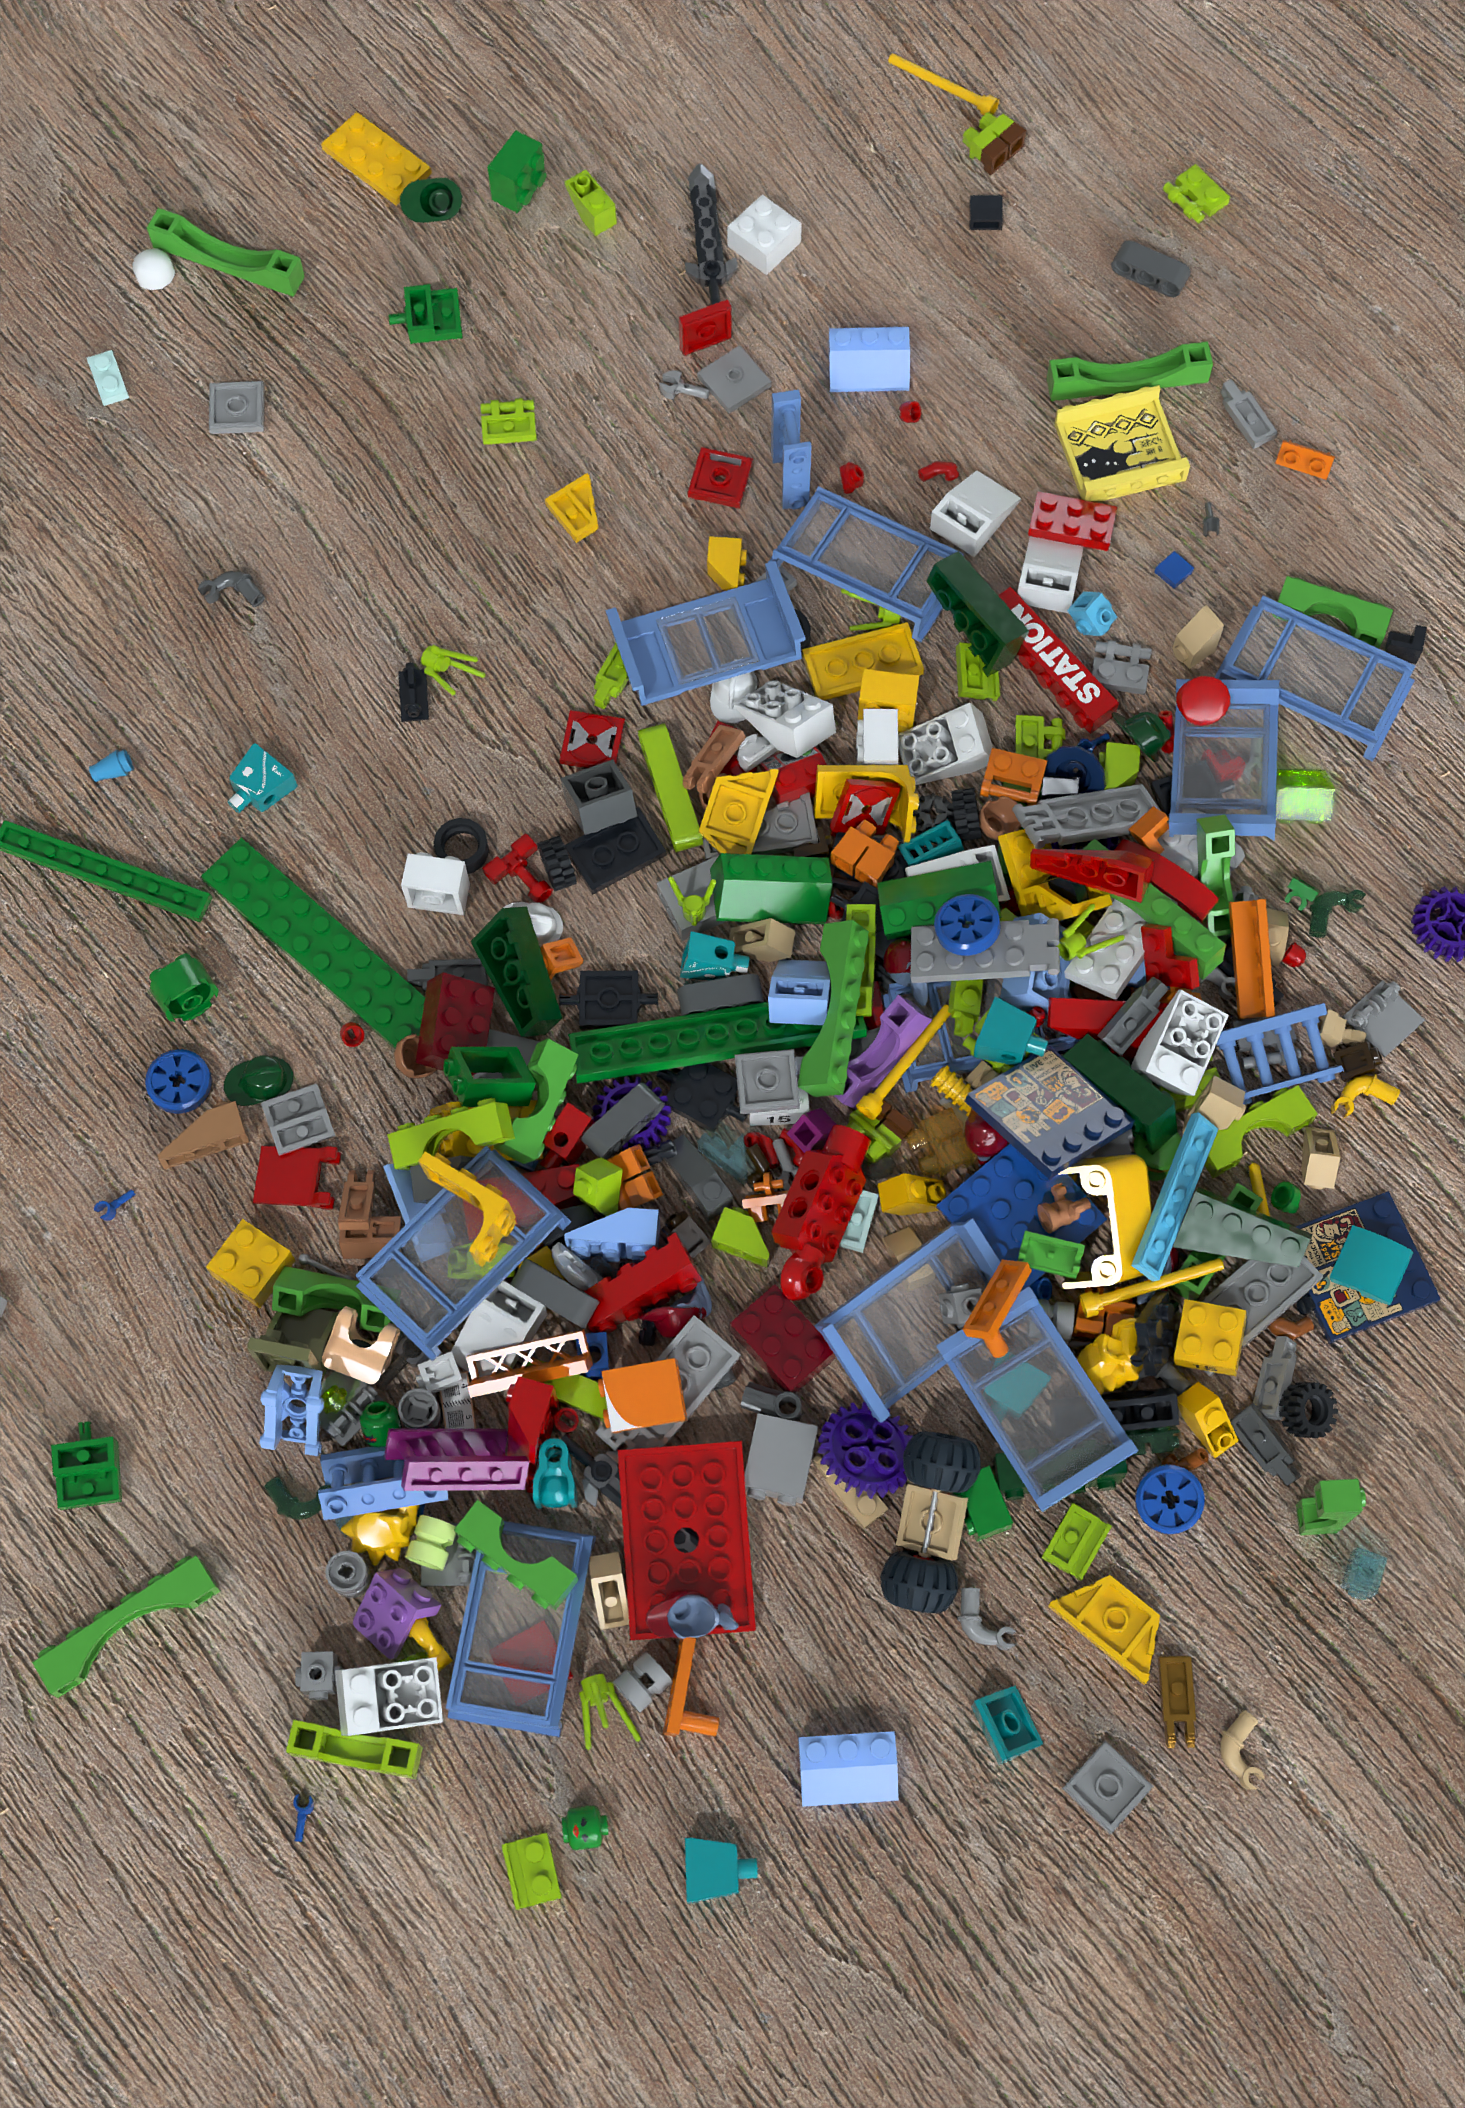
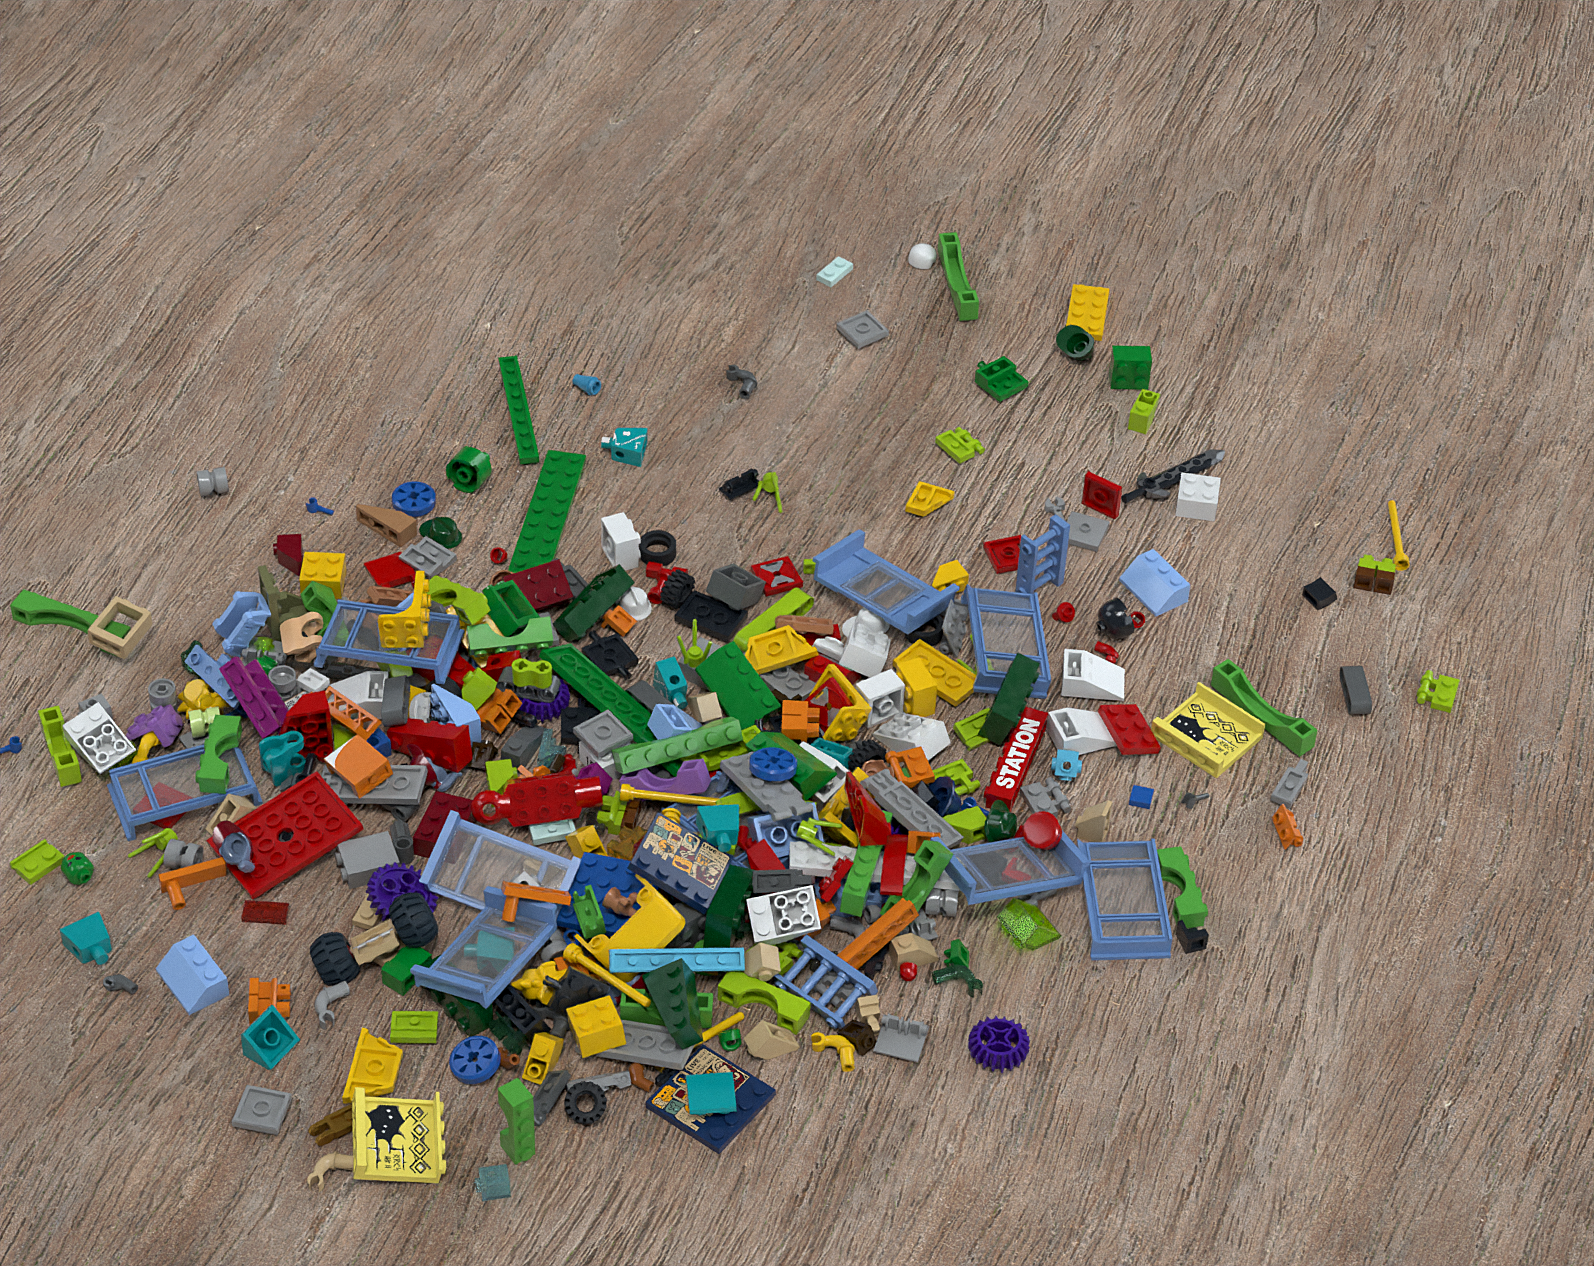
camera: 55 degrees right, 25 degrees down
(87, 1470) = (151, 565): green plate -> none
(180, 1283) = (289, 552): none -> dark red slope
(218, 1596) = (113, 643): none -> tan window
(630, 1110) = (532, 673): none -> lime axle
(785, 1625) = (265, 912): none -> clear red tile
(802, 1862) = (119, 982): none -> dark grey arm
(819, 615) = (953, 631): none -> light grey hinge
(907, 433) = (1114, 621): none -> black cylinder
(955, 1698) = (266, 994): none -> orange hips
(1245, 1650) = (397, 1138): none -> light yellow panel

